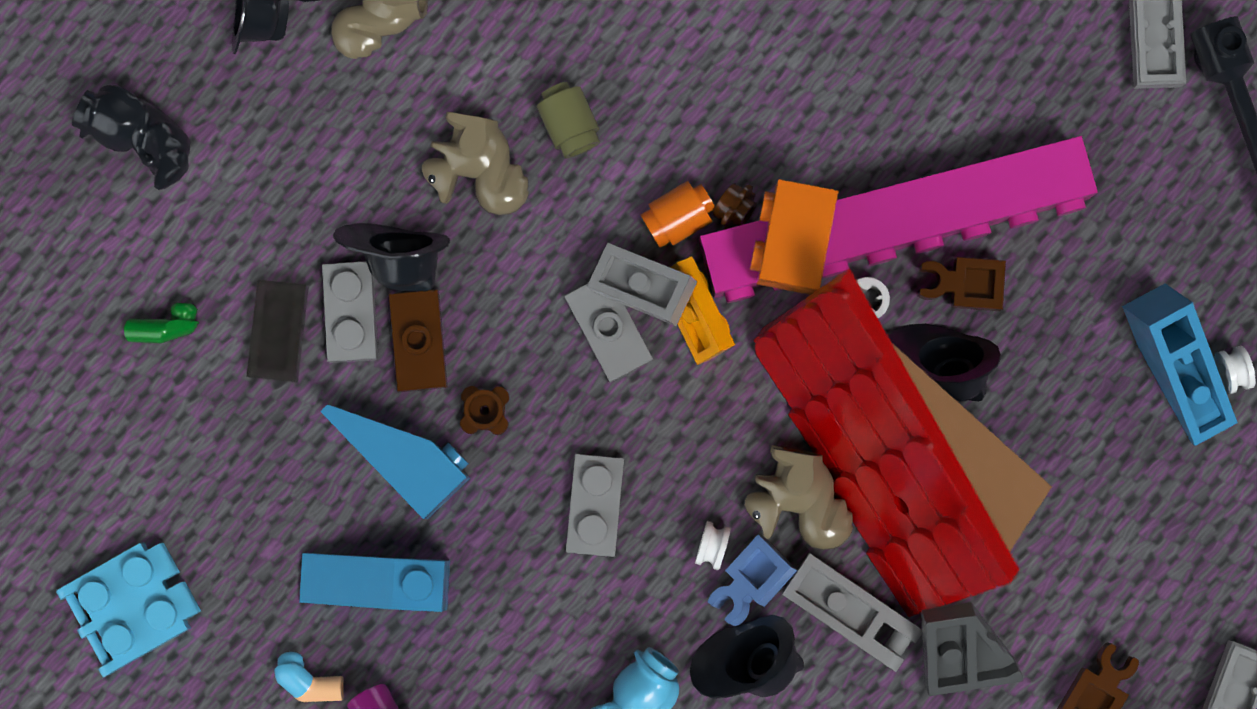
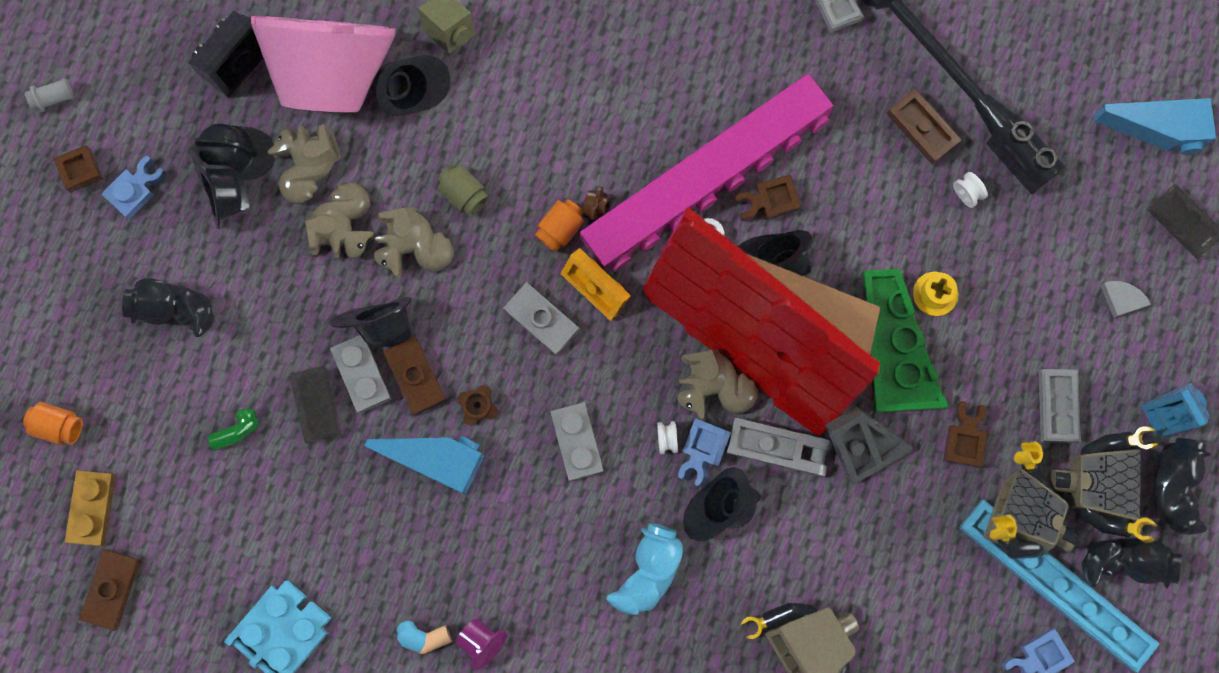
camera: 20 degrees left, 5 degrees down
(375, 582) = (444, 550): dark azure slope -> none
(384, 98) = (332, 222): none -> dark tan animal
(642, 284) = (552, 278): light grey plate -> none
(795, 236) = (644, 206): orange brick -> none
(1058, 543) = (905, 372): none -> green wing
(1134, 488) = (935, 293): none -> yellow piece
(1181, 361) = (933, 197): dark azure slope -> none
(1207, 262) = (924, 126): none -> reddish brown plate

